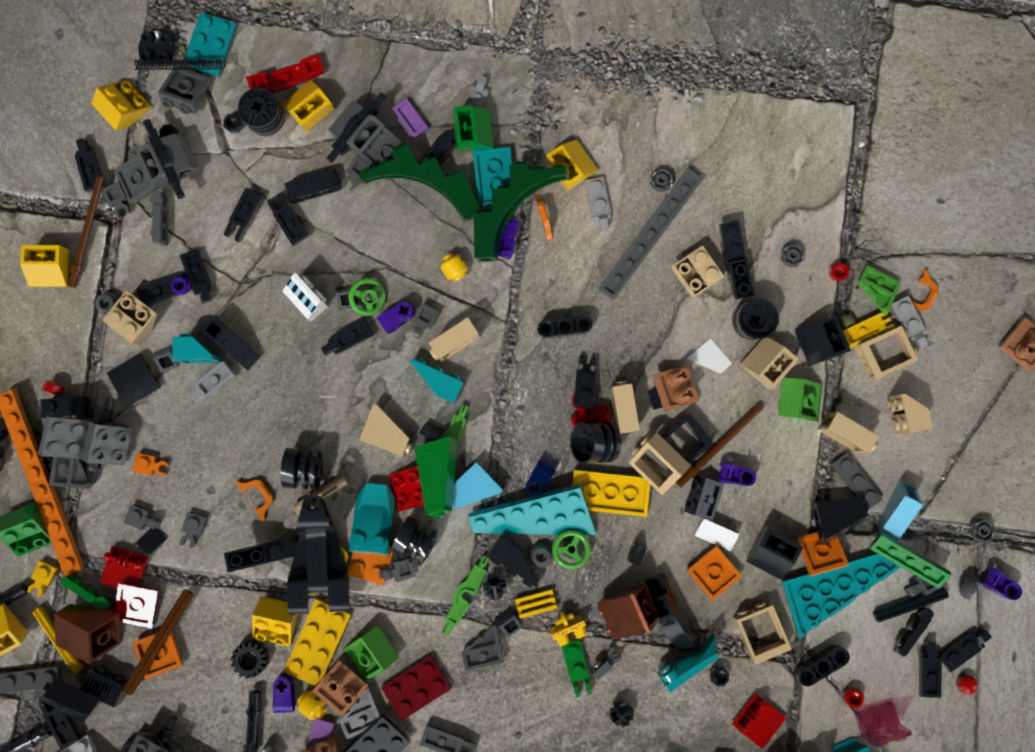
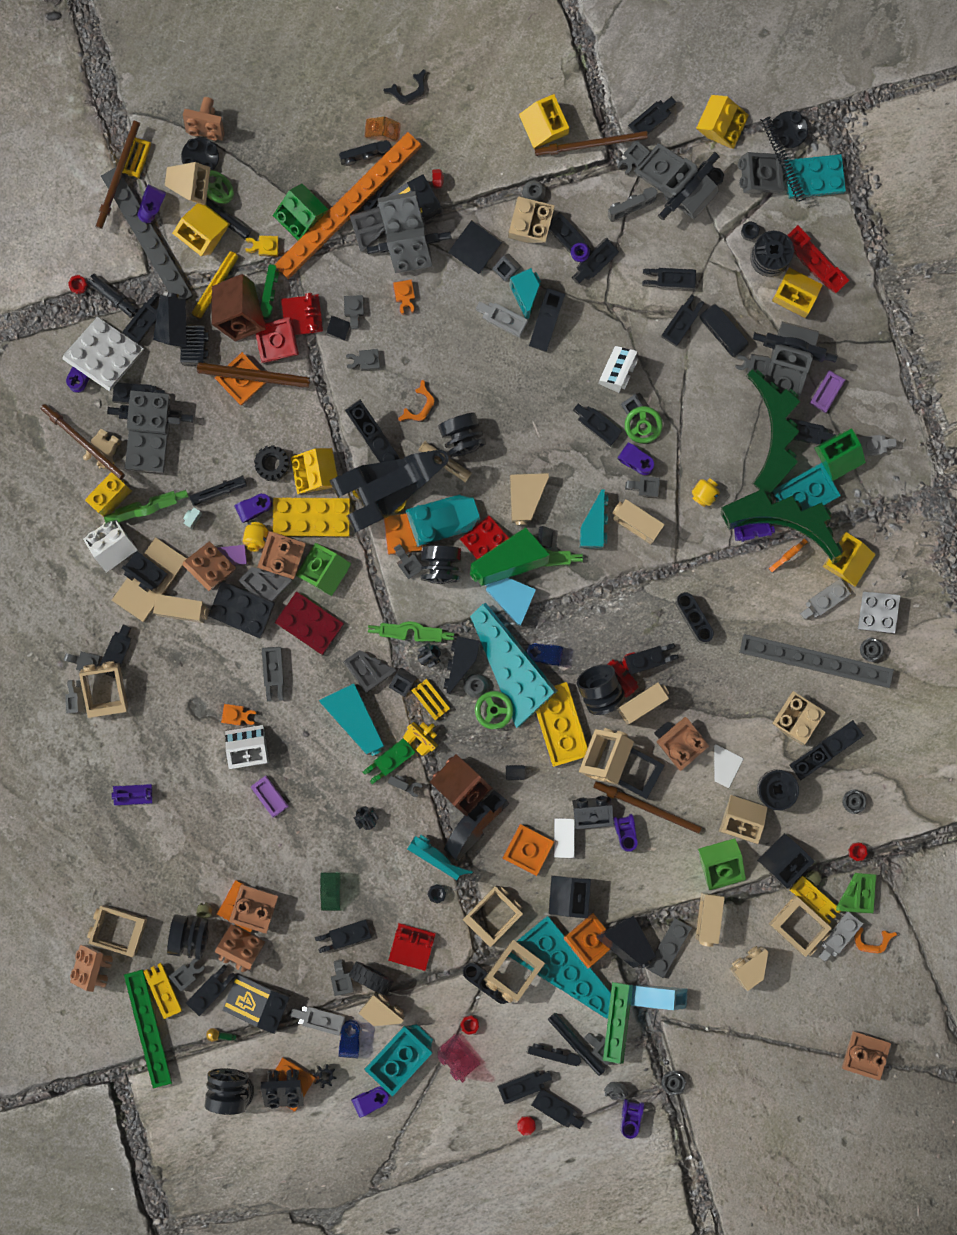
camera: 60 degrees right, 0 degrees up
(521, 684) = (352, 715): none -> teal slope
(630, 158) = (879, 612): none -> hinge
(814, 619) = (523, 954): none -> tan window

